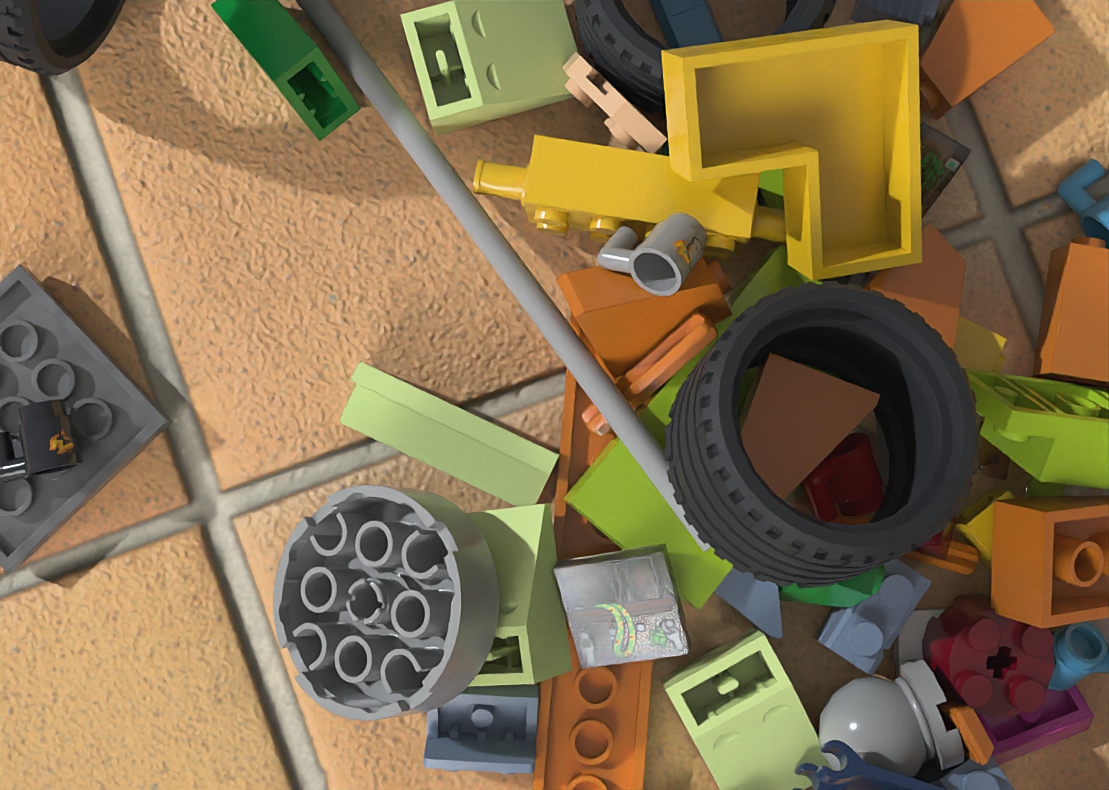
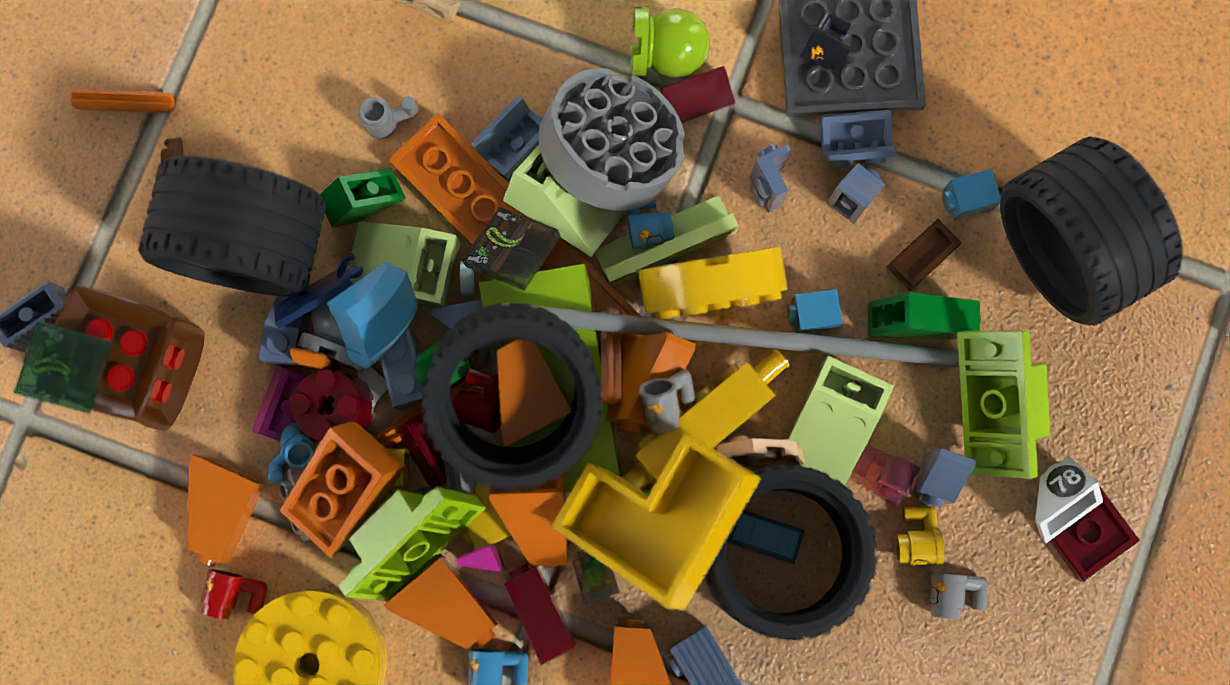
camera: 135 degrees right, 5 degrees down
(85, 121) = (971, 194): none -> dark azure brick
(128, 314) = (857, 137): none -> sand blue bracket
(197, 255) = (856, 192): none -> sand blue slope
(199, 639) = (670, 42): none -> lime tile
(206, 122) = (924, 254): none -> reddish brown tile
(232, 548) = (700, 94): none -> dark red slope
(276, 369) = (768, 184): none -> sand blue bracket
(385, 187) = (815, 311): none -> dark azure brick
(451, 465) = (649, 228): none -> dark azure piece
(460, 322) = (713, 283): none -> yellow brick
(703, 628) = (467, 285): none -> light aqua tile
(853, 700) = (374, 313): none -> dark azure slope
(1014, 199) = (539, 613): none -> dark red slope
(1016, 317) = (483, 558): none -> dark pink slope

